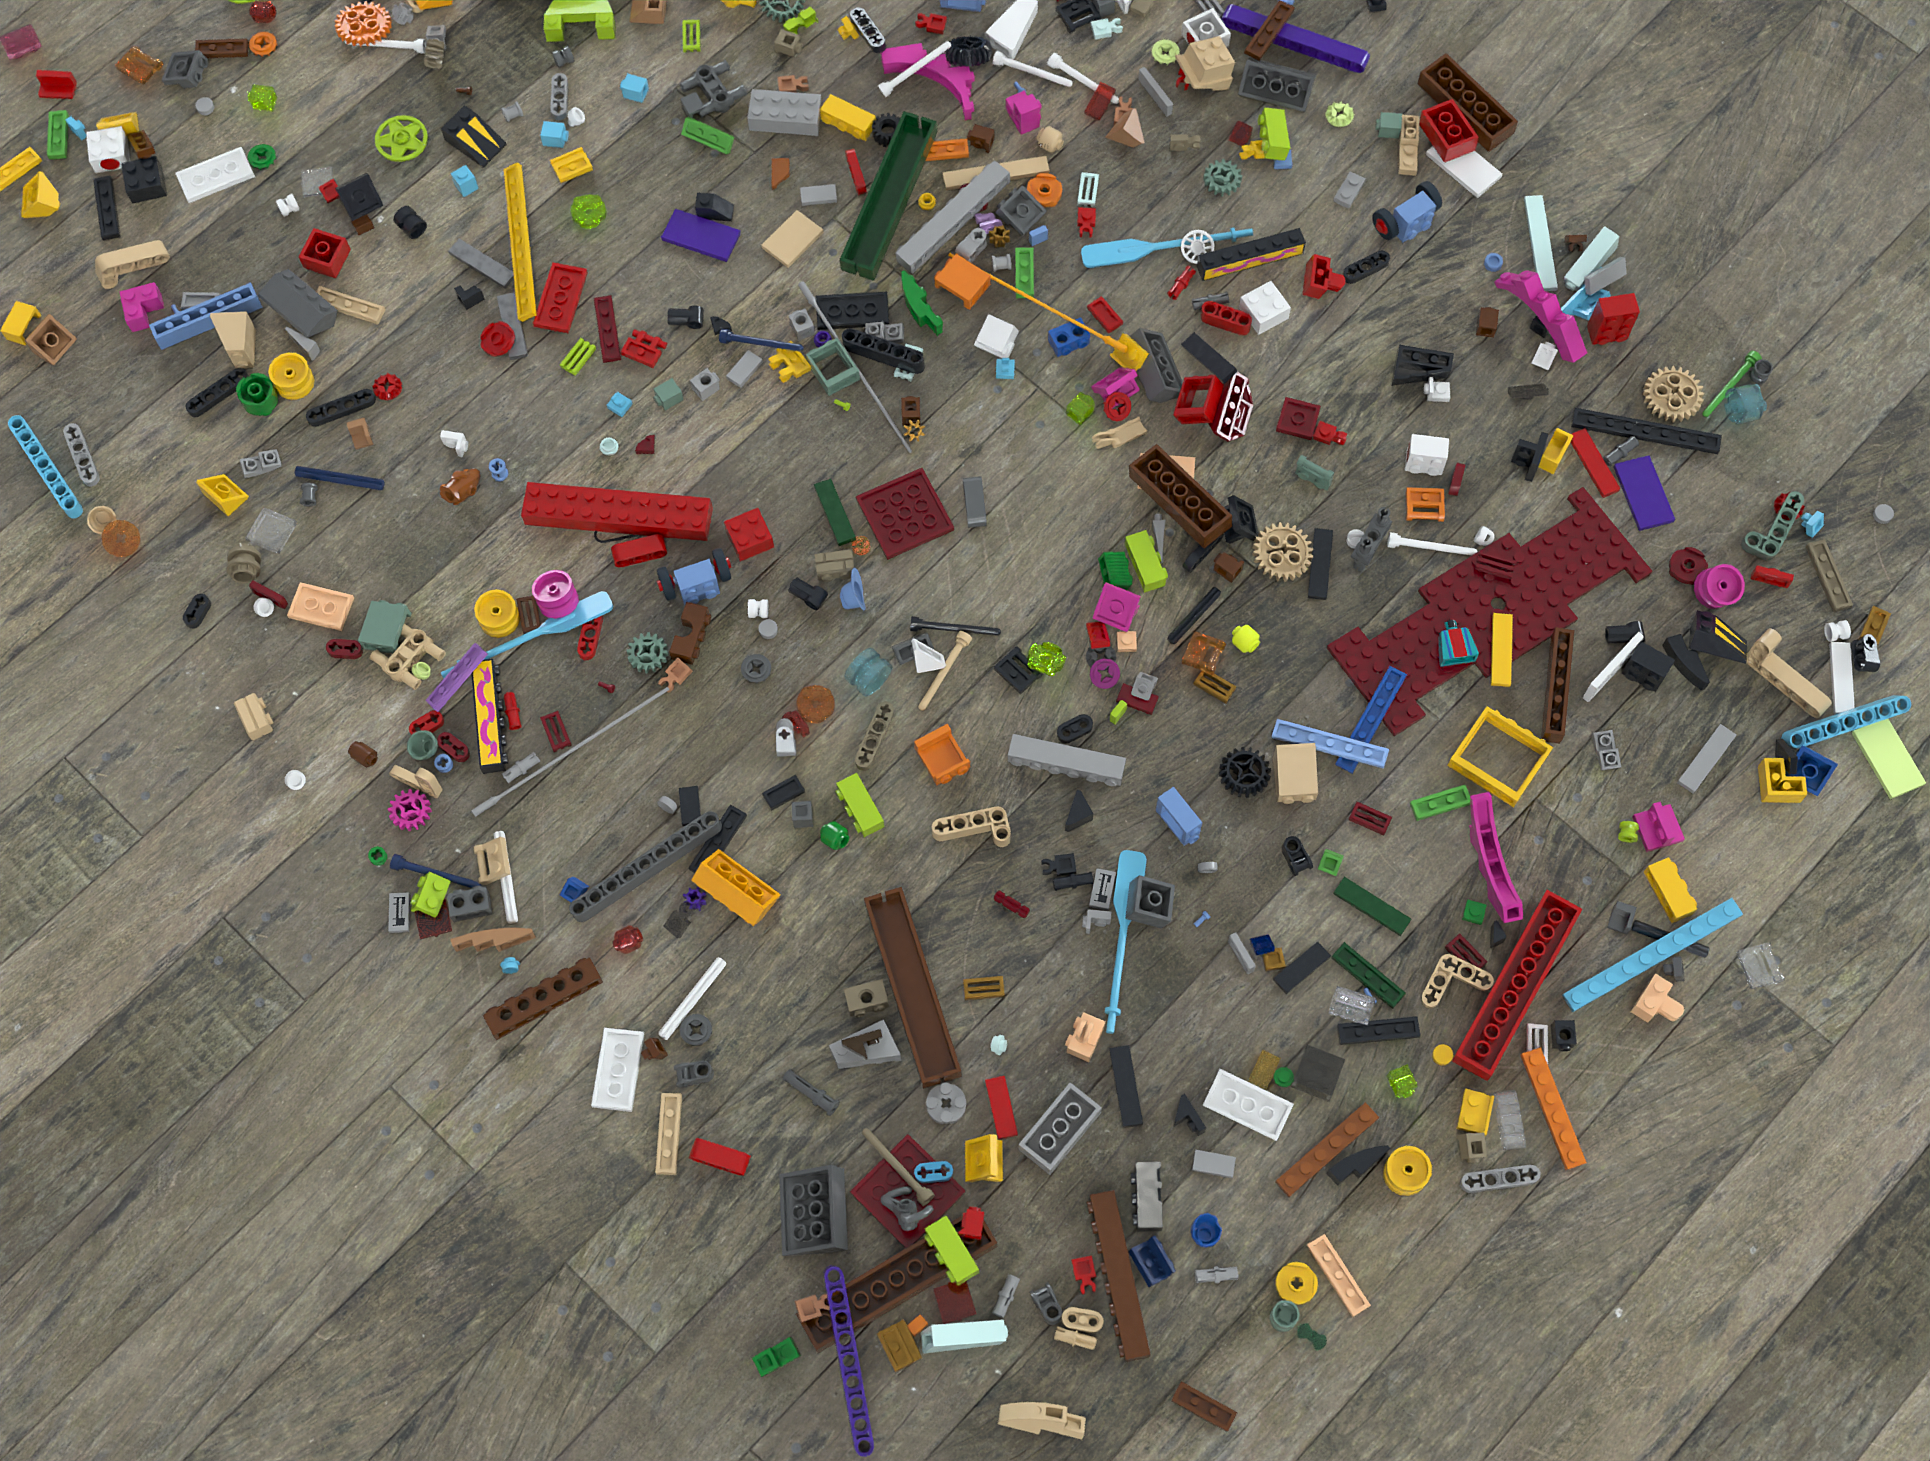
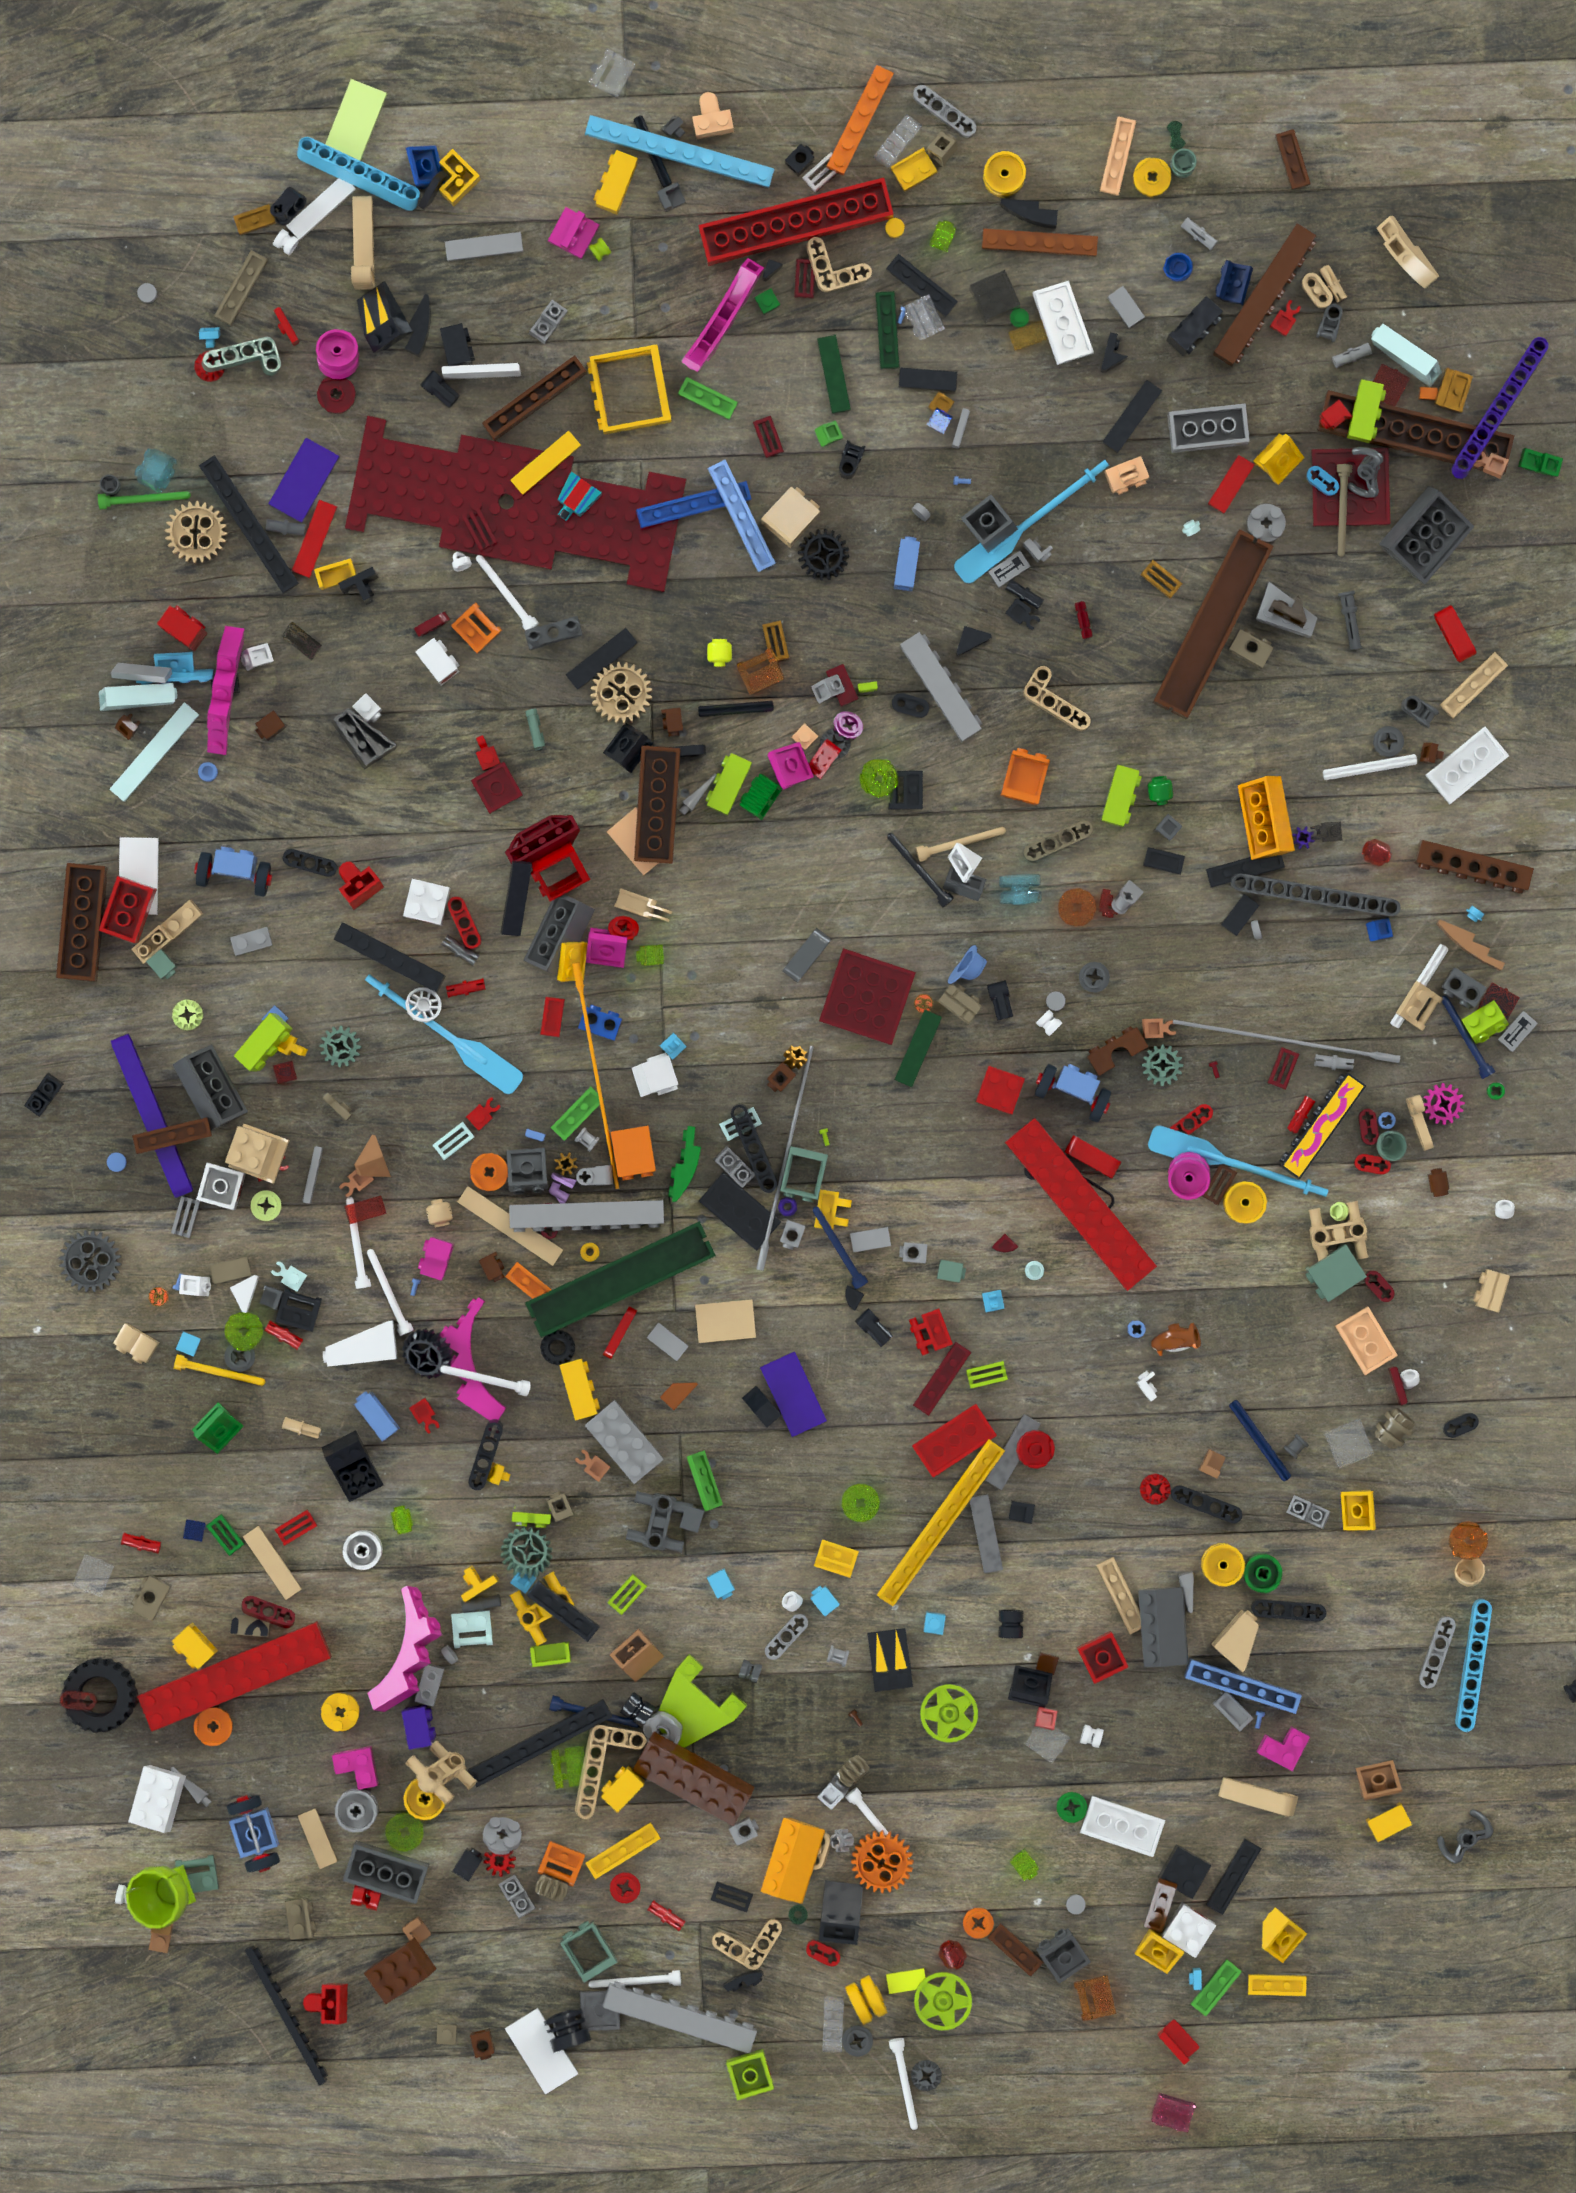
camera: 140 degrees left, 20 degrees up
(456, 677) = (1320, 1175): medium lavender tile -> none
(1354, 537) = (555, 652): white tile -> none

